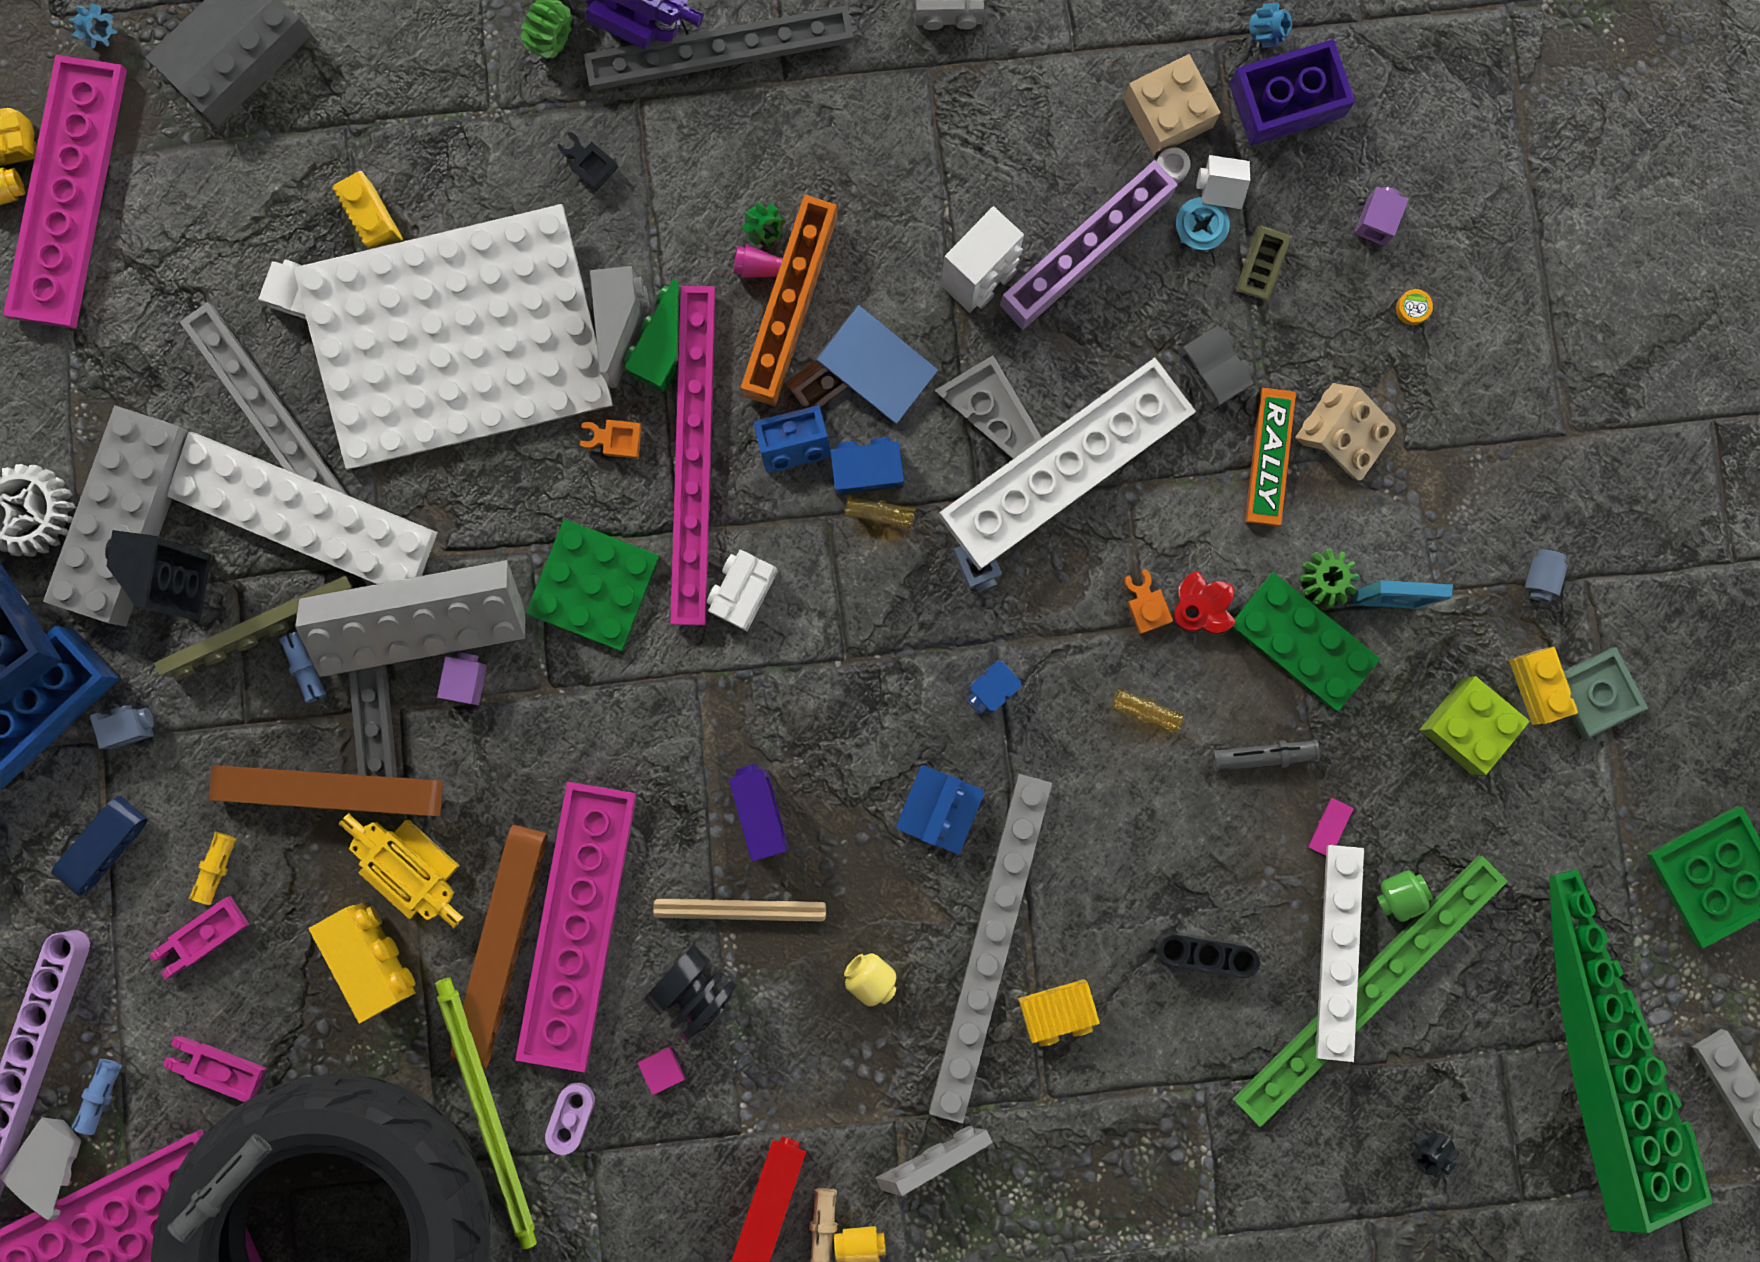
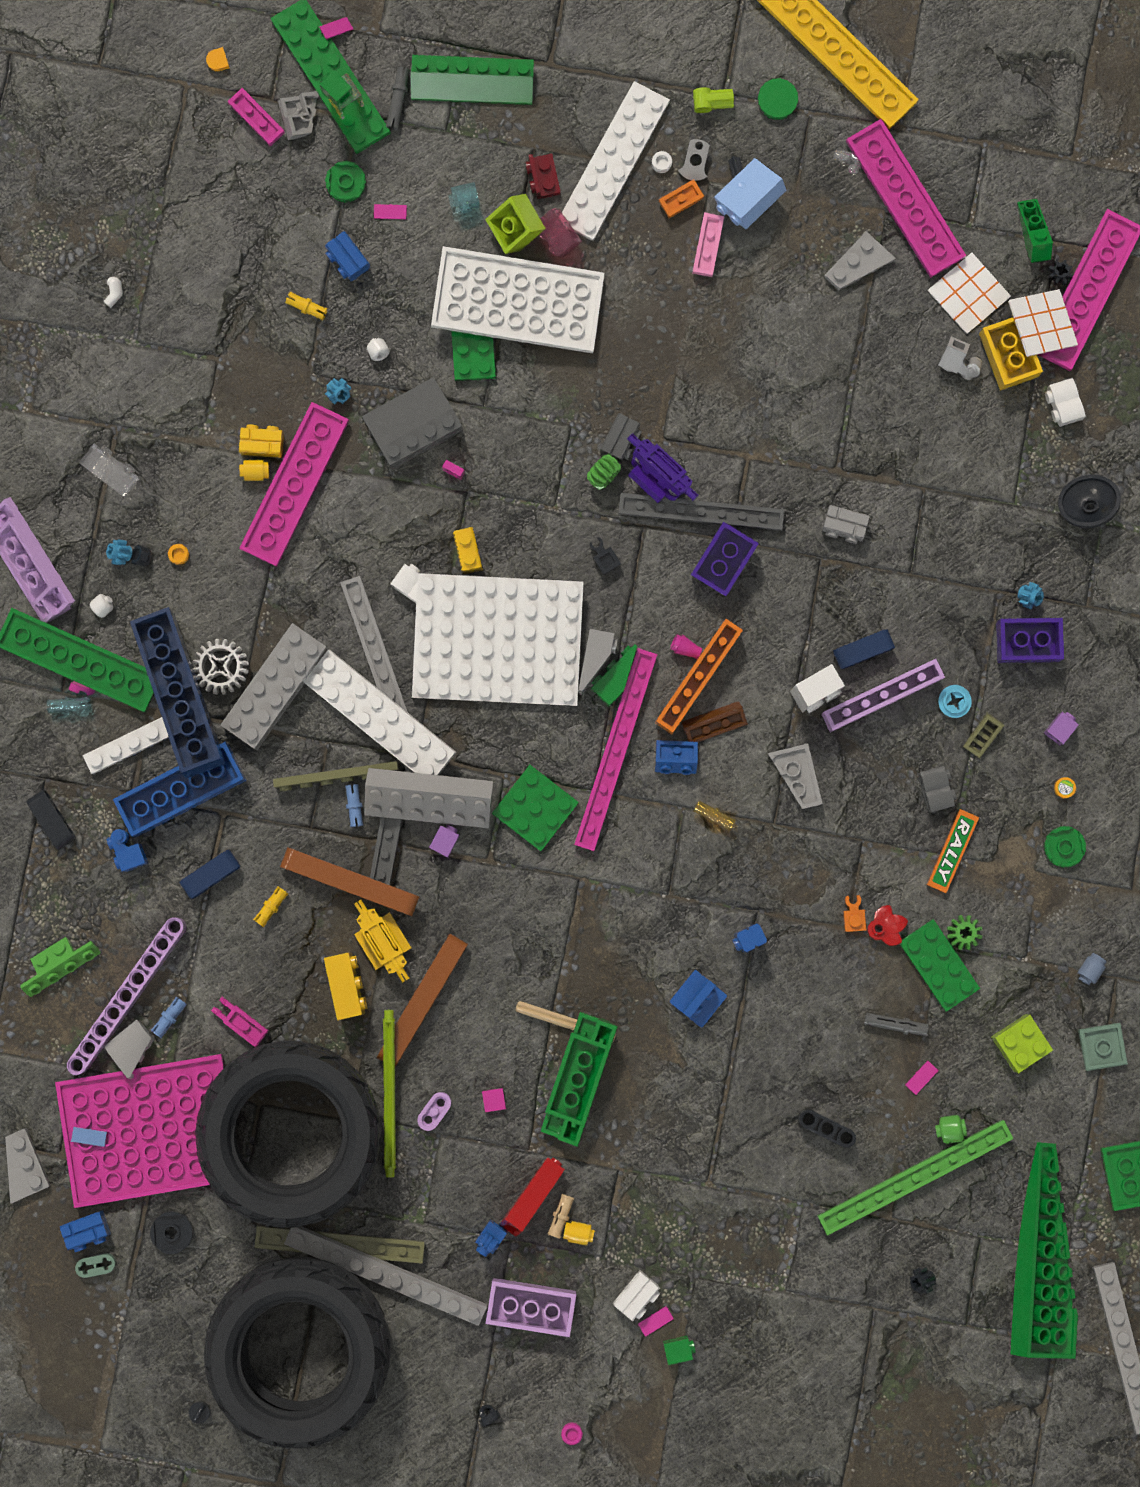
camera: 15 degrees right, 0 degrees up
(122, 726) = (242, 809): sand blue brick -> none
(159, 573) = (296, 730): black slope -> none
(202, 936) = (253, 943): dark pink hinge -> none
(207, 1201) = (255, 1083): dark grey pin -> none
(310, 95) = (453, 470): none -> dark pink tile
(576, 927) = (469, 1002): dark pink plate -> none
(617, 439) = (575, 726): orange plate -> none
(690, 993) = (525, 1060): black wheel -> none
(742, 589) = (622, 837): white brick -> none
(758, 812) = (594, 969): dark purple window -> none
(763, 224) = (696, 625): green gear -> none
(775, 104) = (724, 559): none -> dark purple brick
(784, 997) = (578, 1078): none -> green slope
(867, 466) = (715, 787): blue brick -> none
(870, 979) = (629, 1084): light yellow head -> none
(876, 364) = (738, 728): medium blue tile -> none
(933, 1161) = (635, 1197): light grey wing -> none
(981, 581) = (762, 855): sand blue brick -> none
(990, 948) = (703, 1086): light grey plate -> none
(1037, 183) = (863, 649): none -> dark blue beam
(1059, 1012) = (732, 1135): yellow brick -> none
(1066, 463) = (832, 820): white plate -> none
(1147, 710) = (835, 977): clear yellow pin -> none
(1171, 105) = (957, 626): tan brick -> none
(1175, 163) = (948, 660): white tile -> none
(1224, 181) = (974, 681): white brick -> none
(1340, 953) = (903, 1150): white plate -> none
(1348, 429) = (1002, 849): tan bracket -> none
(1401, 594) = (1000, 955): dark azure tile -> none
(1442, 398) = (1064, 846): none -> green tile
(1543, 686) = (1069, 1032): yellow brick -> none

